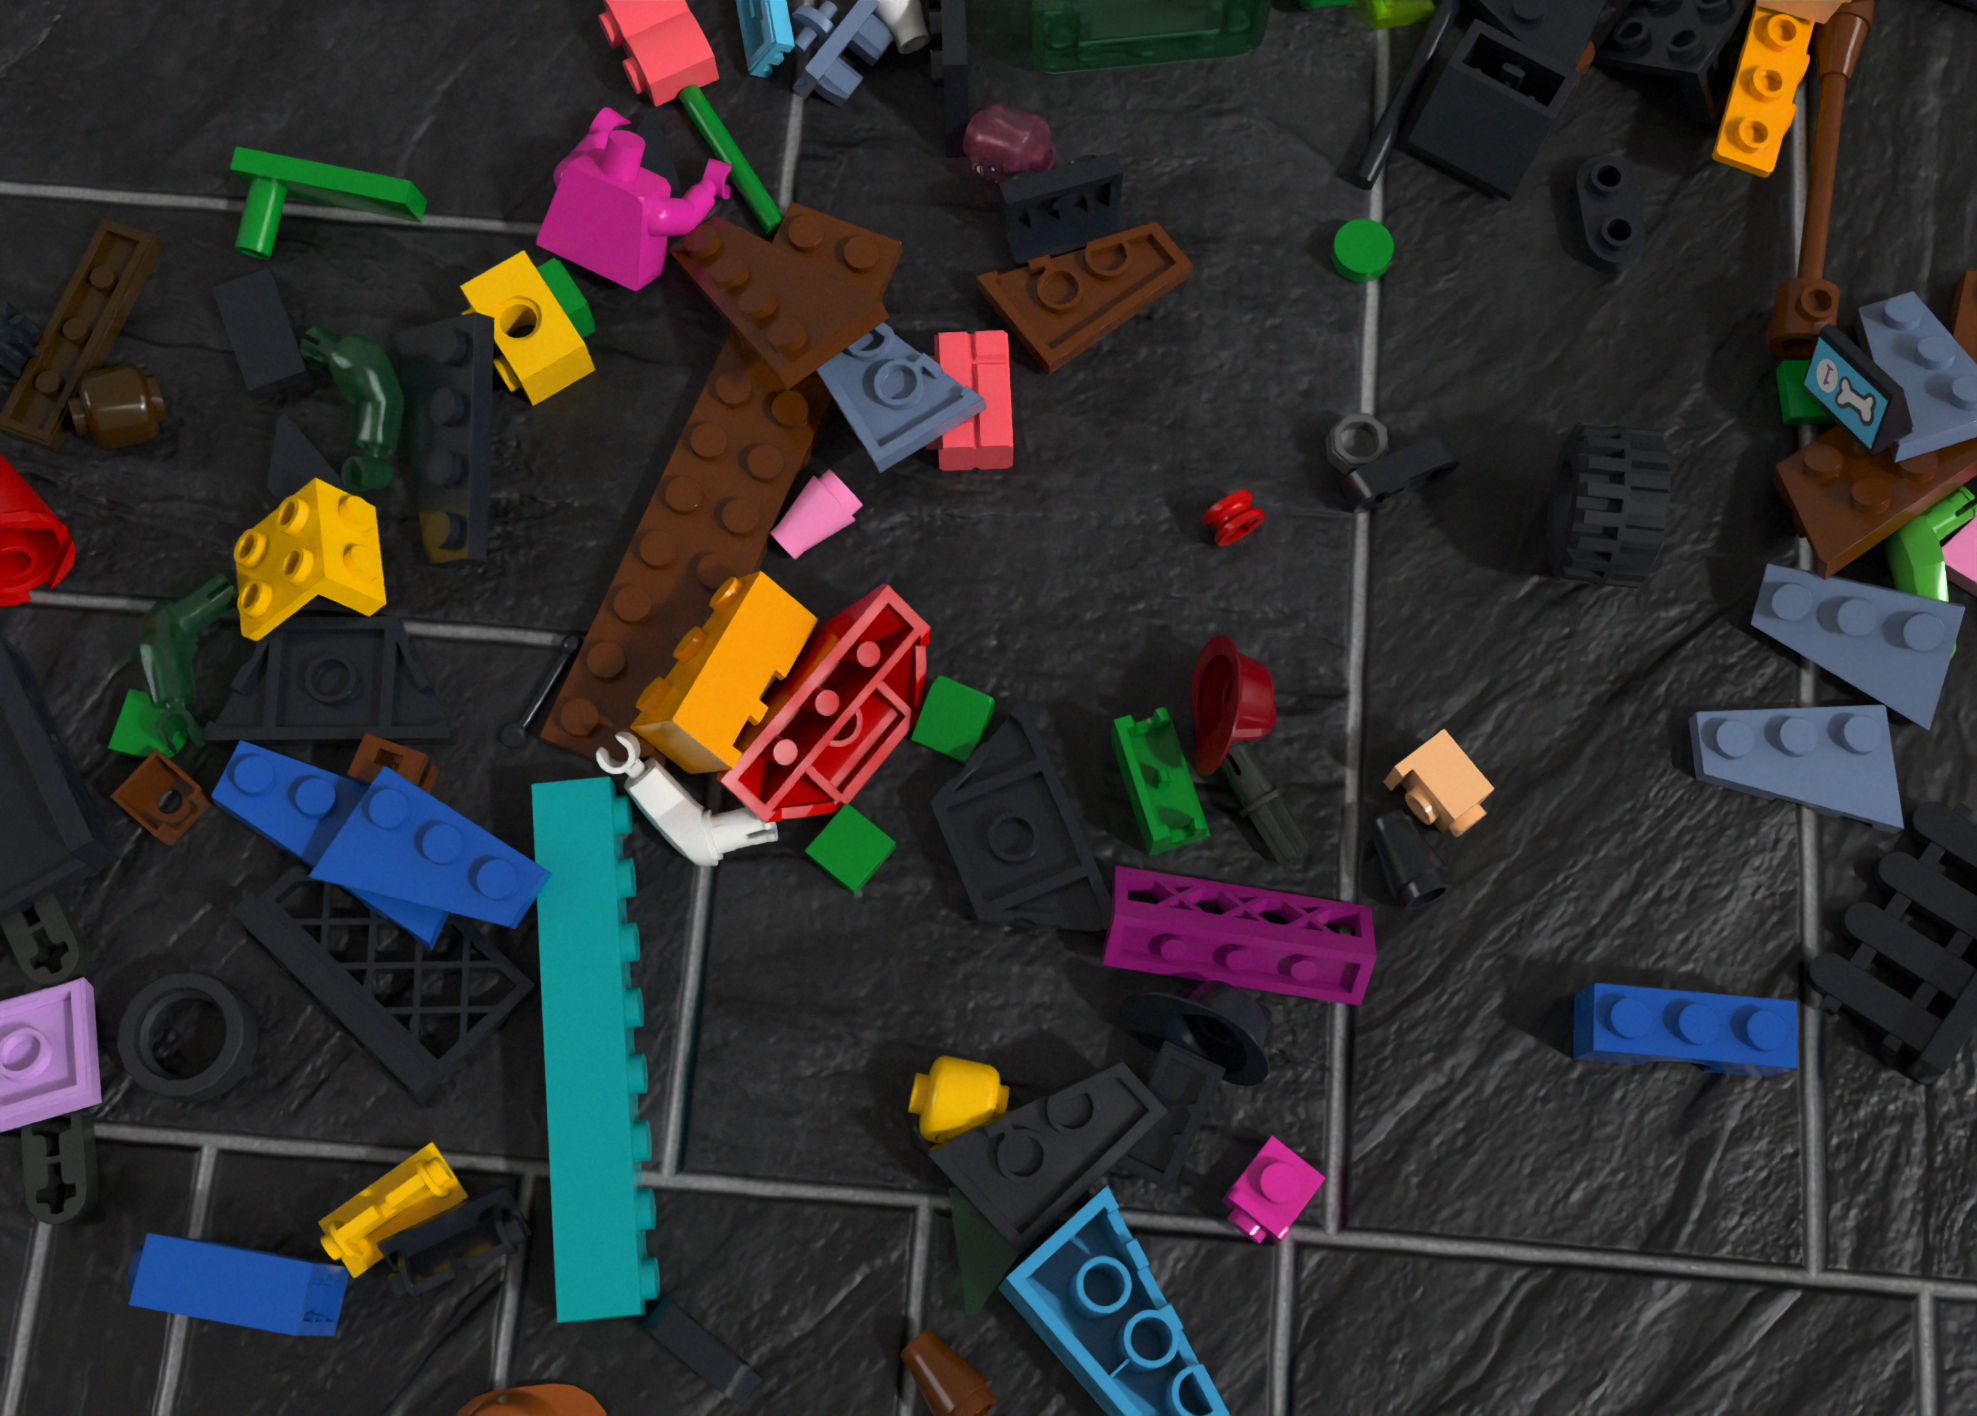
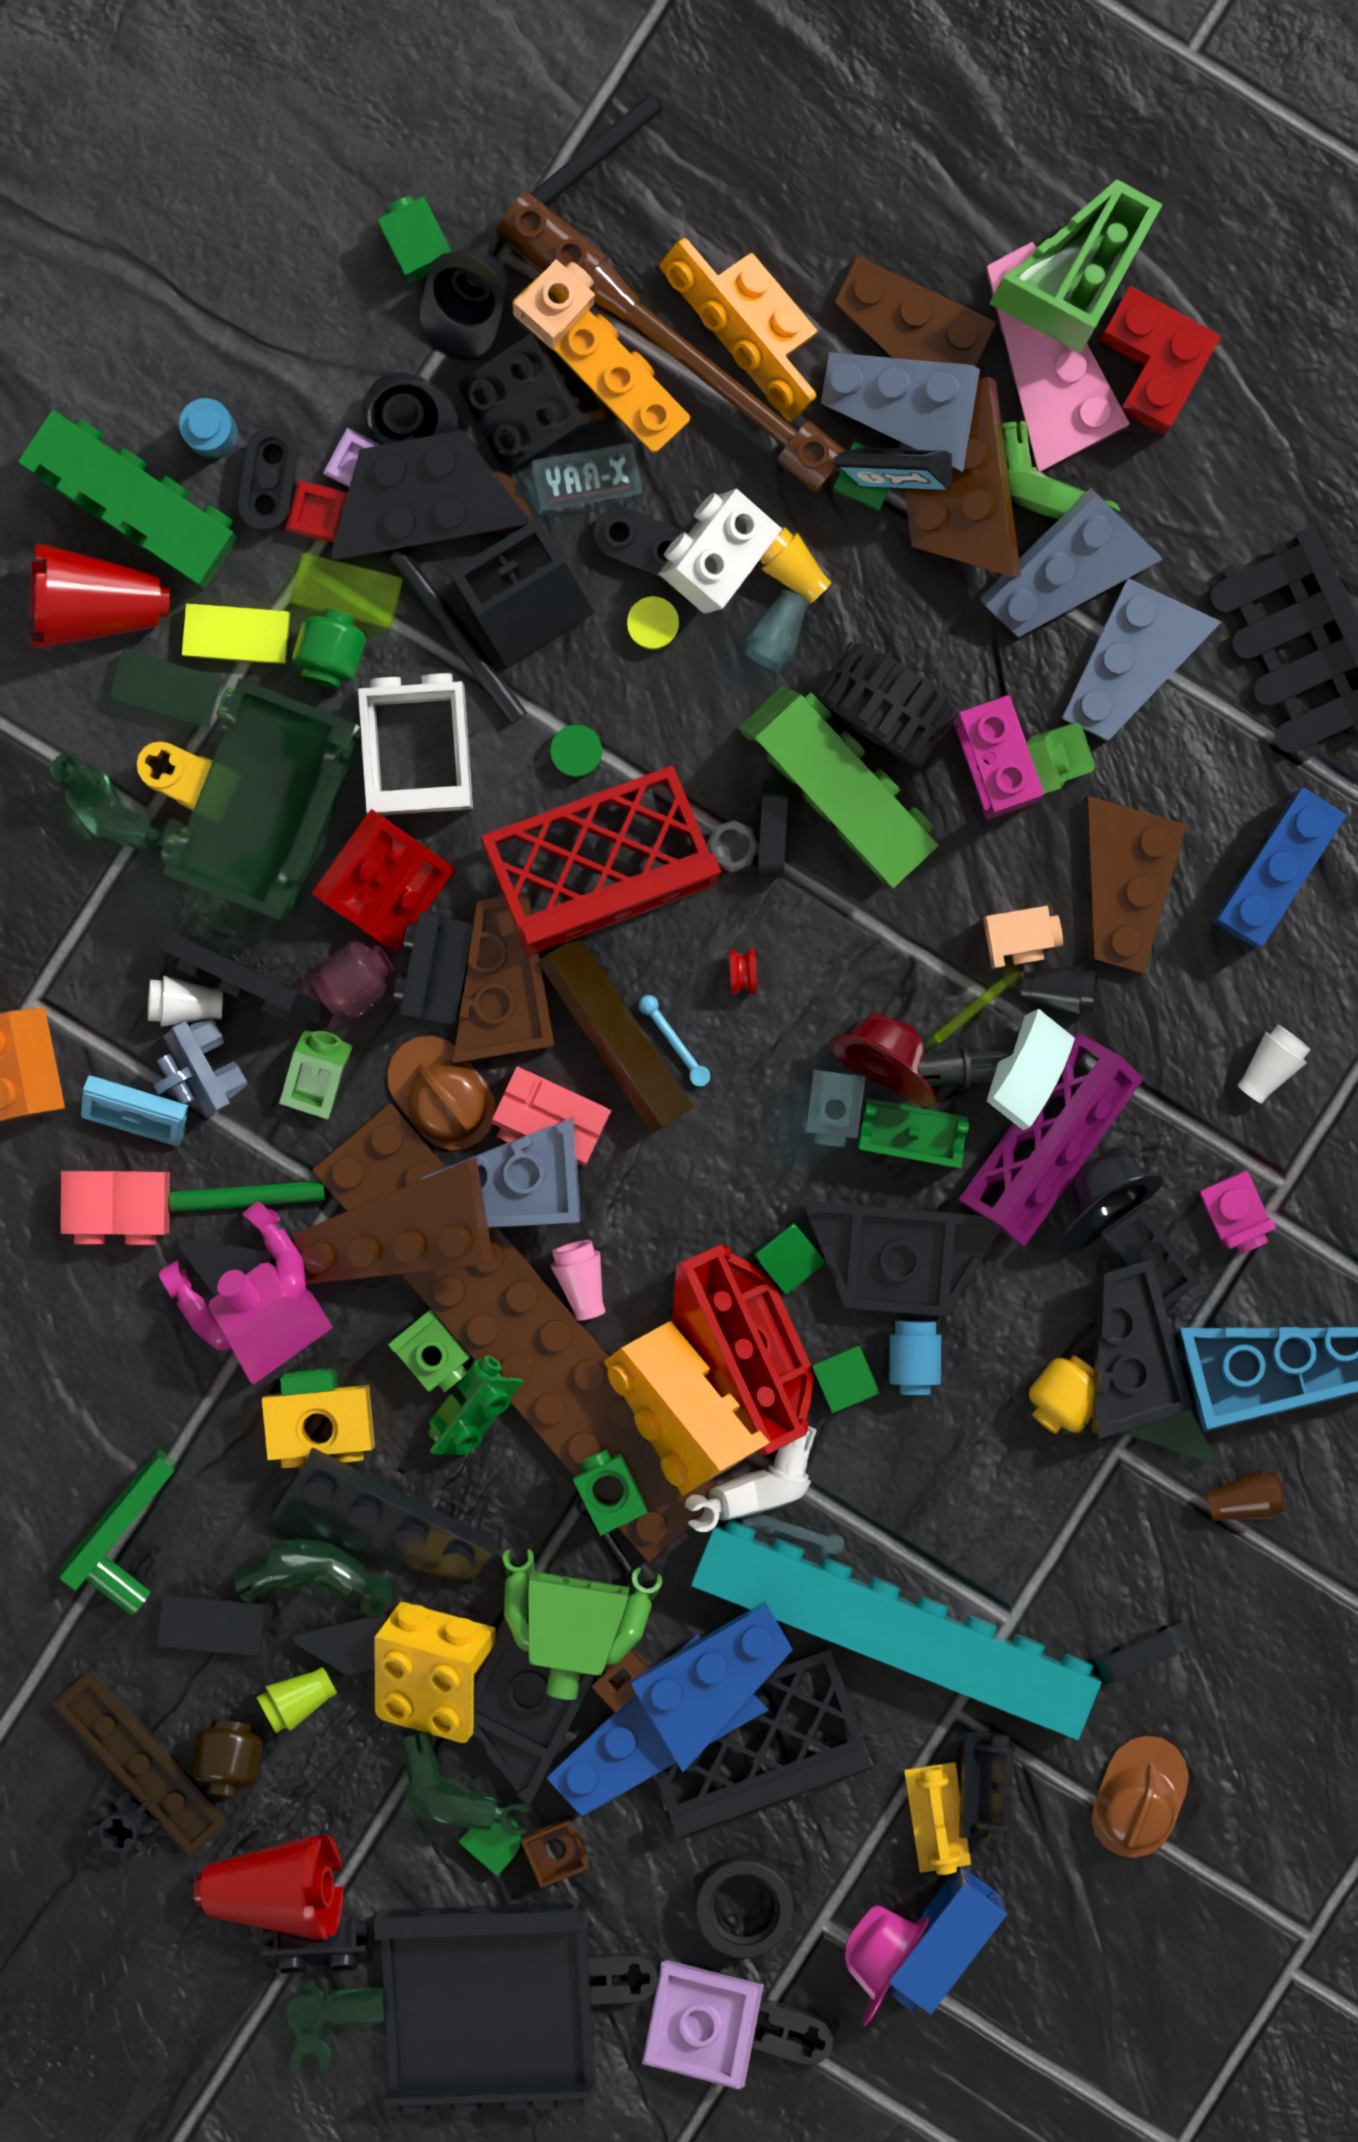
camera: 65 degrees left, 15 degrees up
(198, 1209) = (878, 1949): none -> dark pink piece
(213, 445) = (295, 1699): none -> lime cone
(430, 679) = (573, 1621): none -> bright green torso
(594, 670) = (609, 1515): none -> green brick
(618, 471) = (460, 1424): none -> green hinge
(657, 929) = (833, 1543): none -> clear light blue hinge
(663, 423) = (431, 1332): none -> bright green brick
(892, 156) = (315, 1073): none -> bright green bracket
(915, 908) = (915, 1357): none -> dark azure brick
(937, 288) = (440, 1097): none -> dark orange piece
(1094, 423) = (615, 1034): none -> dark brown tile
(1098, 533) = (698, 1074): none -> medium azure hinge
(1131, 111) = (383, 880): none -> red slope
(1144, 679) = (834, 1107): none -> clear light blue brick
(1230, 126) = (389, 691): none -> white window
(1239, 346) = (617, 901): none -> red fence
(1290, 764) = (1010, 978): none -> clear neon green hinge
(1303, 867) = (1030, 1074): none -> light aqua slope
(1463, 1143) = (1273, 1063): none -> white cone
(1491, 510) = (840, 784): none -> bright green wedge
(1535, 260) = (653, 623): none -> neon yellow tile
(1567, 877) = (1129, 879): none -> reddish brown wing
(1603, 379) = (777, 633): none -> clear light blue cone
(1624, 648) = (995, 735): none -> dark pink window
(1637, 131) = (587, 478): none -> clear light blue tile
(1654, 270) = (718, 550): none -> white brick
(1654, 725) = (1060, 755): none -> bright green bracket
(1680, 359) = (794, 566): none -> yellow cone
(1895, 197) = (750, 319): none -> light orange bracket

